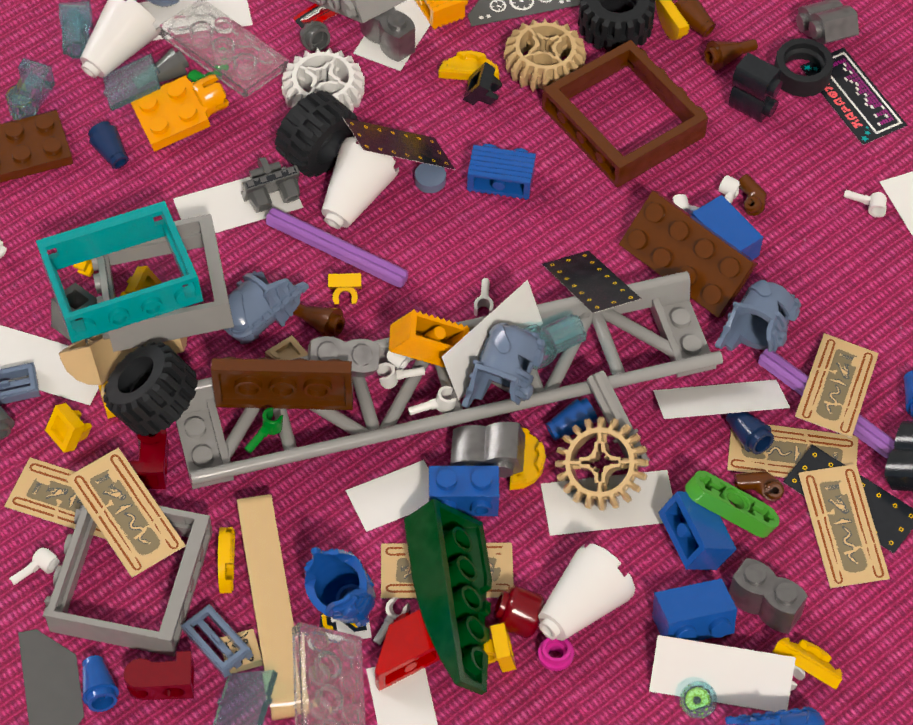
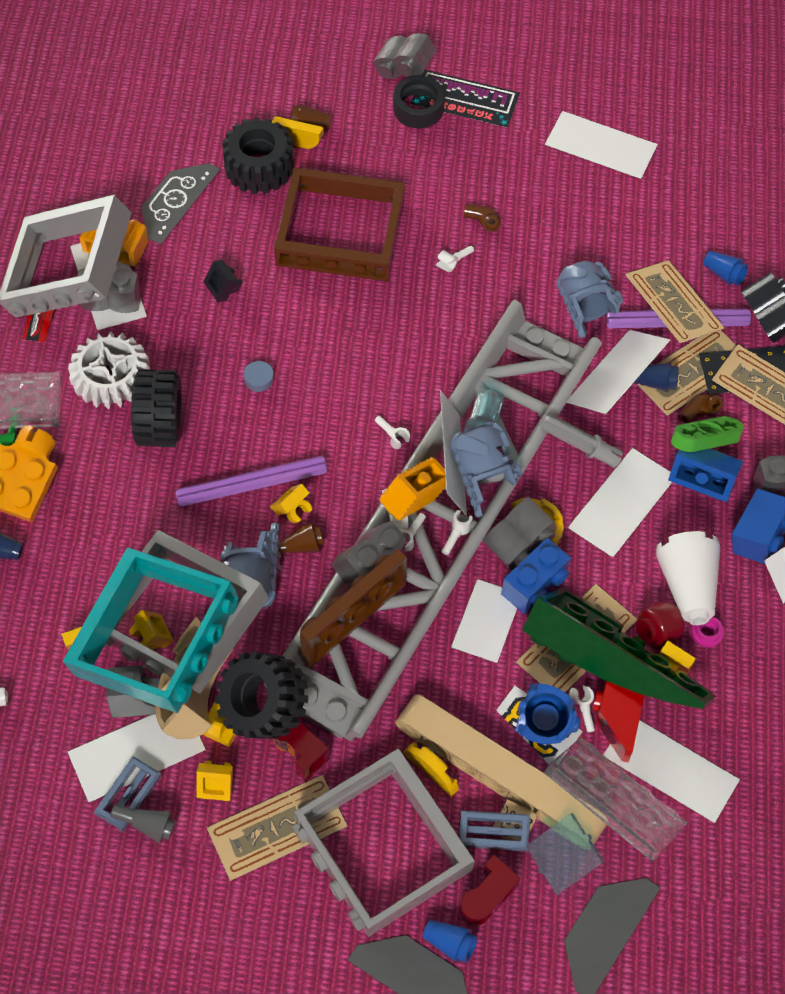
camera: 45 degrees left, 5 degrees up
(42, 559) = (309, 890): white hand -> none
(125, 512) = (337, 801): sticker -> none
(227, 205) = (140, 506): white sticker -> none
(268, 427) = (366, 650): green hand -> none
(269, 179) = (166, 464): dark grey hips -> none
(286, 350) = (306, 586): tan tile -> none
(315, 36) = (60, 338): dark grey plate -> none
(355, 183) = (218, 421): white cone -> none
(398, 143) = (223, 368): sticker -> none
(464, 65) = (191, 275): yellow tile -> none
(501, 171) = (306, 331): blue brick -> none
(546, 47) = (241, 225): tan gear -> none
(571, 415) = (545, 465): blue cone -> none
(591, 281) = (458, 359): black sticker -> none
(602, 480) = (625, 462): tan gear -> none
(677, 242) = (489, 285): reddish brown plate -> none
(721, 53) = (356, 132): reddish brown cone -> none
(729, 224) = (501, 256): blue brick -> none
(730, 188) = (464, 222): white hand -> none
(755, 88) = (413, 138): black brick -> none
(876, 202) = (561, 158): white hand -> none

